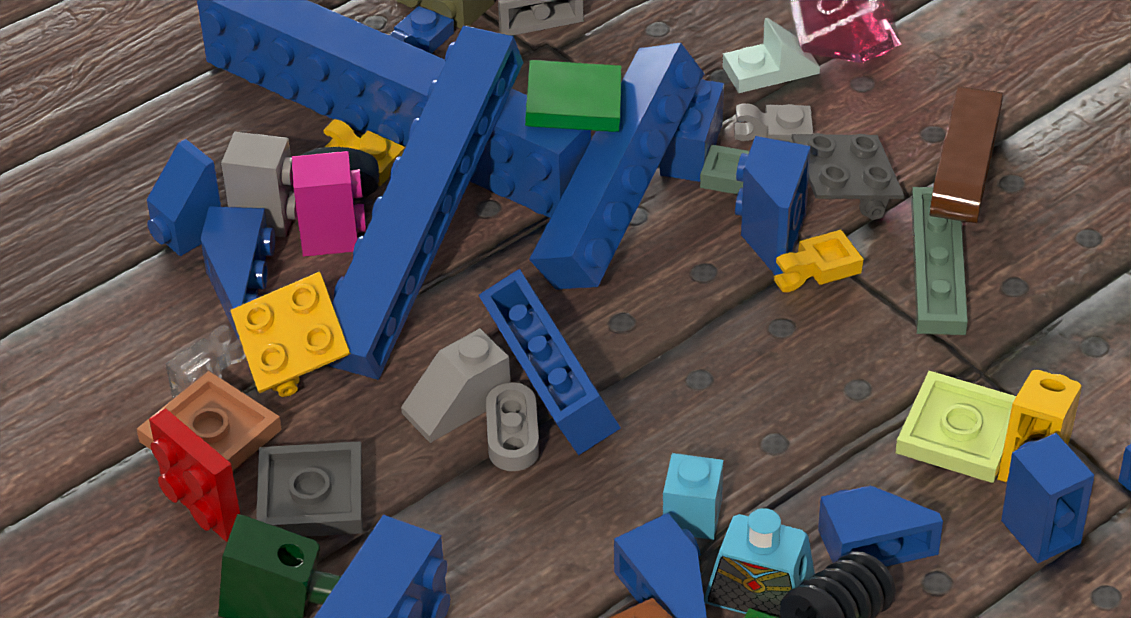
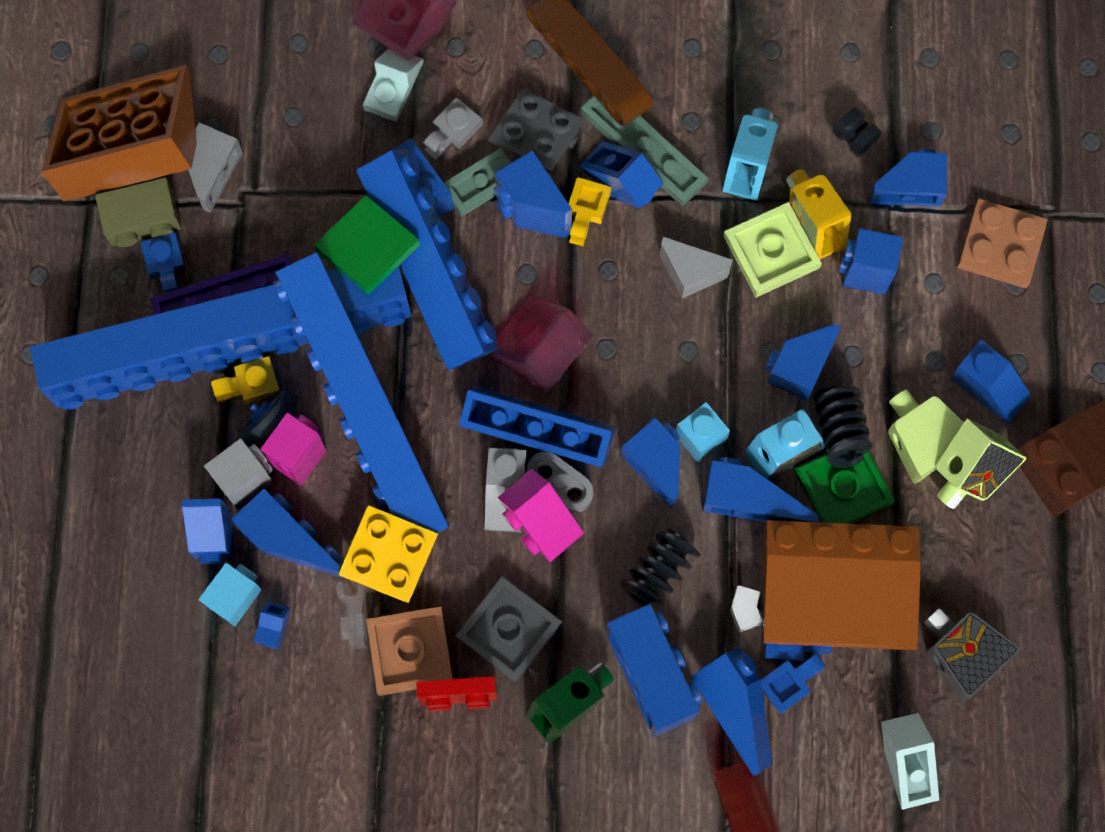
camera: 50 degrees left, 30 degrees up
(134, 316) = (272, 625): none -> blue piece
(138, 264) = (231, 592): none -> medium azure brick
(451, 416) = (540, 515): none -> dark pink brick
(504, 560) = (659, 568): none -> black piece
(623, 482) = (656, 458): none -> blue slope
(641, 317) = (540, 341): none -> clear pink slope
(861, 377) = (692, 267): none -> light grey slope
(888, 263) = (625, 171): none -> blue slope
(1031, 331) = (753, 148): none -> medium azure torso

